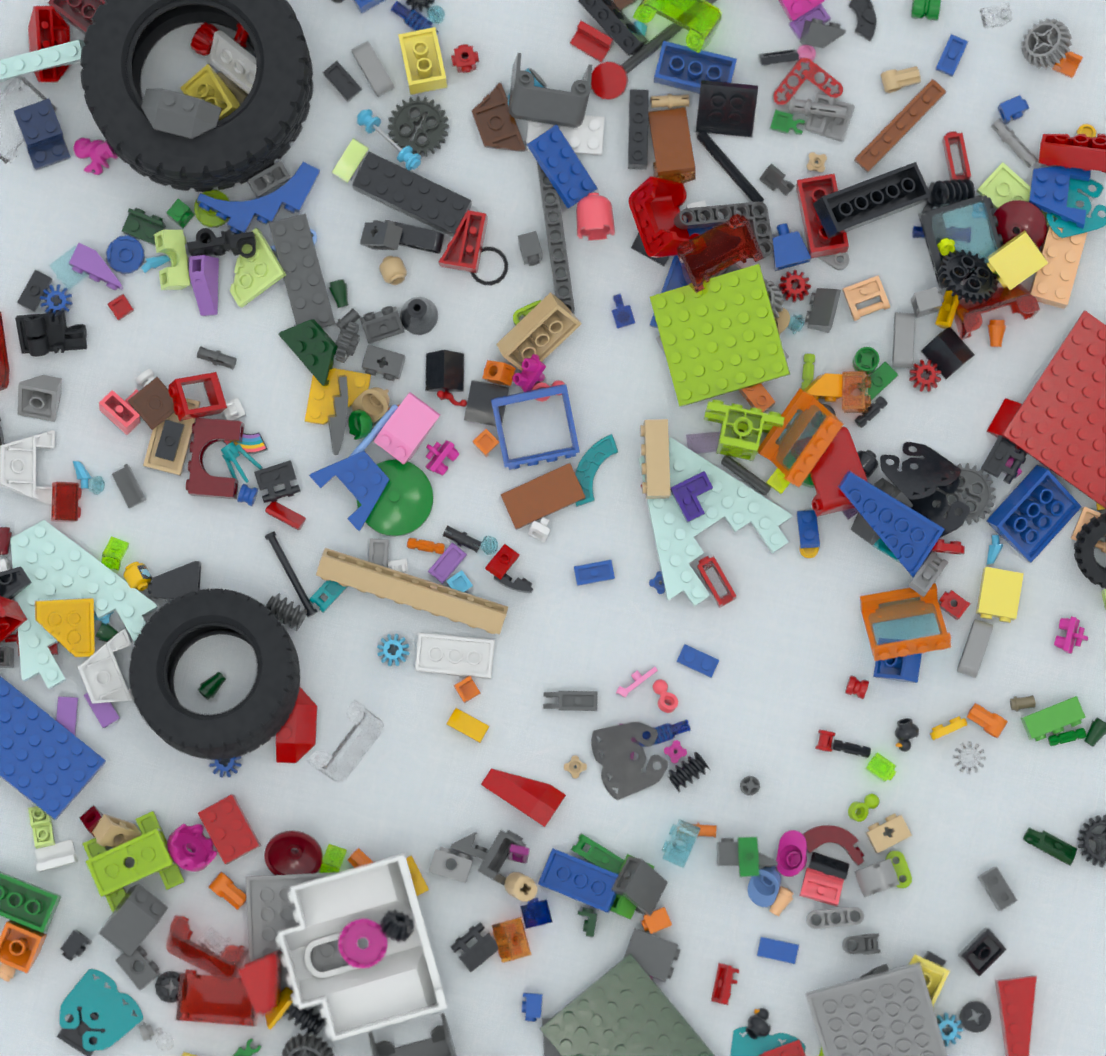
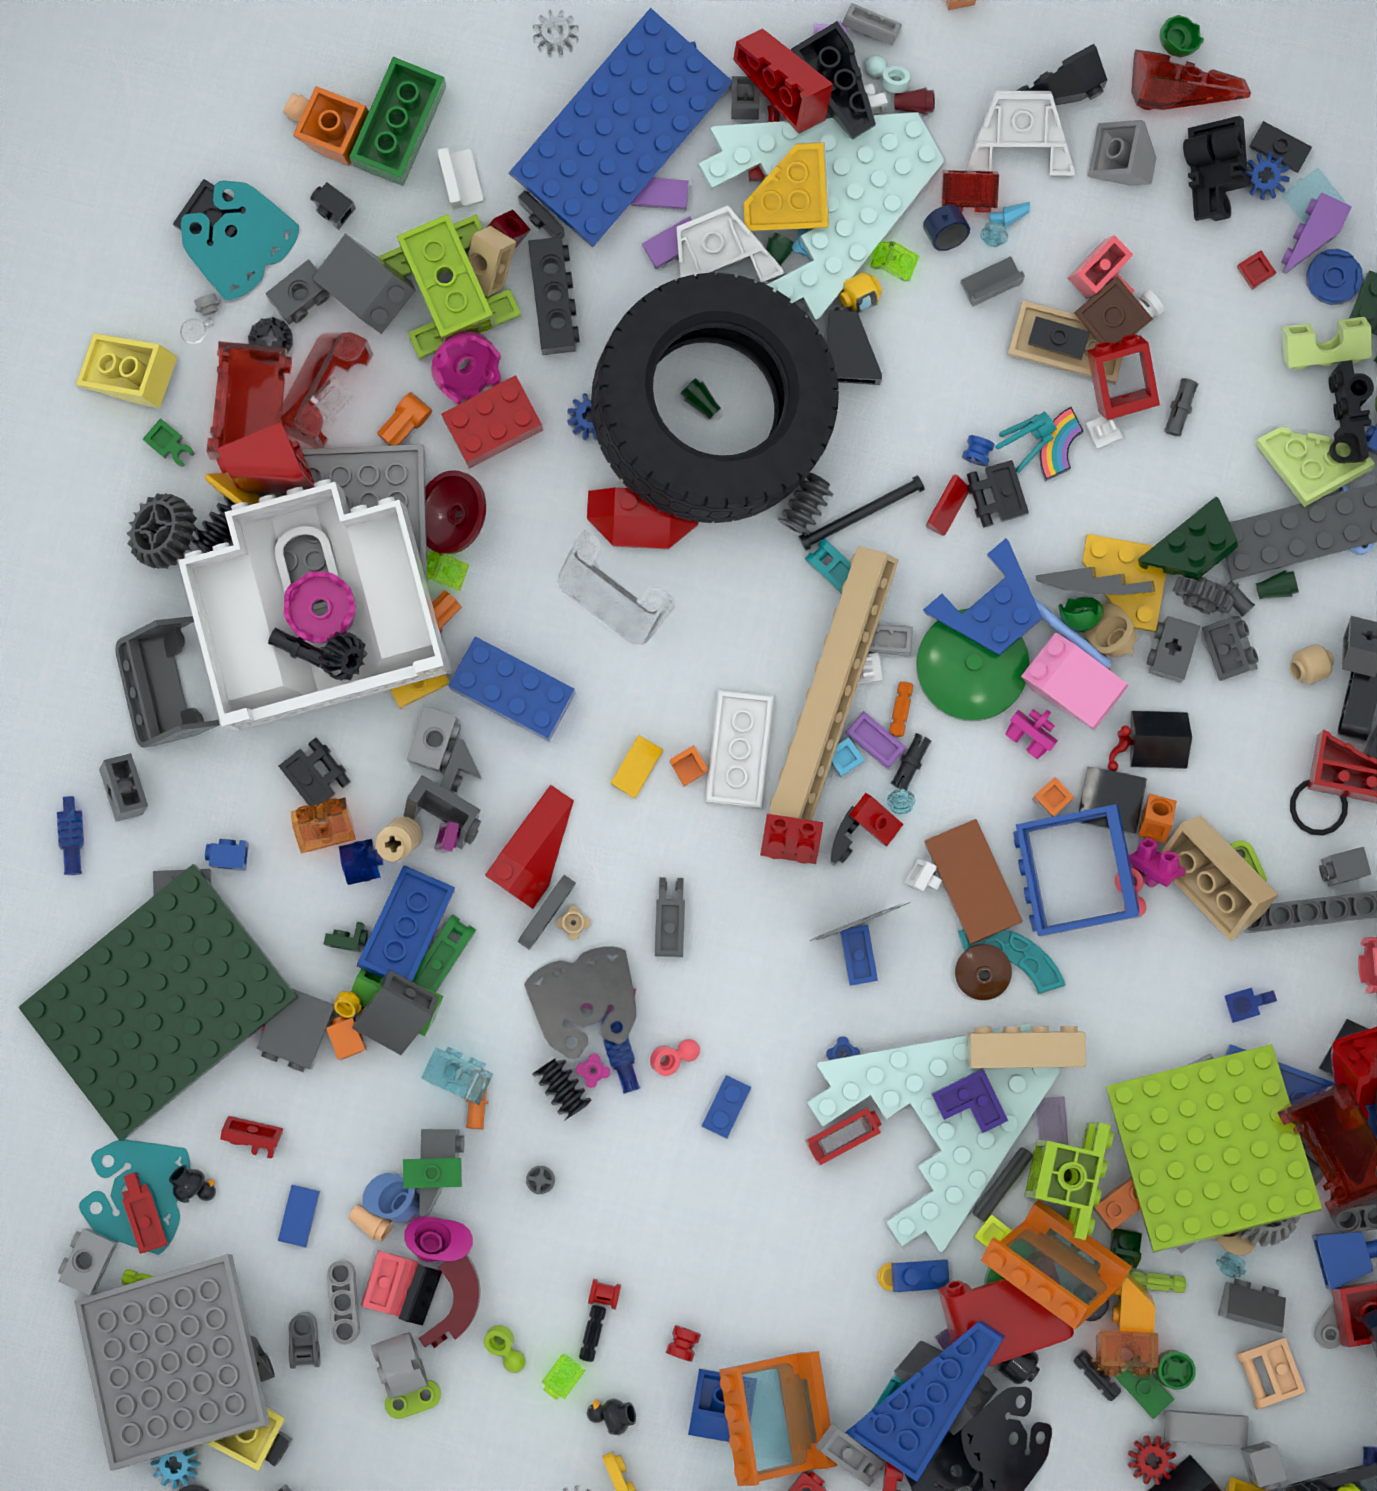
camera: 90 degrees right, 0 degrees up
(41, 827) = (498, 158): yellowish green slope -> none
(84, 798) = (540, 216): none -> black plate
(92, 517) = (946, 227): none -> dark blue piece
(110, 798) = (542, 253): none -> black brick
(154, 262) = (1322, 318): medium azure bar -> none
(204, 280) = (1295, 389): medium lavender slope -> none
(205, 434) = (1068, 390): dark red arch -> none
(387, 646) = (742, 667): medium azure gear -> none
(390, 959) = (296, 647): none -> black pin
(415, 811) = (512, 689): none -> blue brick
(419, 315) = (1243, 702): black cone -> none
(516, 618) = (791, 839): none -> red plate
(568, 784) = (546, 912): none -> dark grey beam
(574, 574) = (845, 927): none -> piece
(595, 490) = (983, 958): none -> reddish brown dish
(634, 919) = (347, 1004): none -> yellow plate
(638, 680) = (699, 1018): bright pink piece -> none
(785, 392) = (1126, 1246): none -> dark green bracket
(787, 286) = (1288, 1275): red gear -> none
(879, 841) = (452, 1376): tan brick -> none

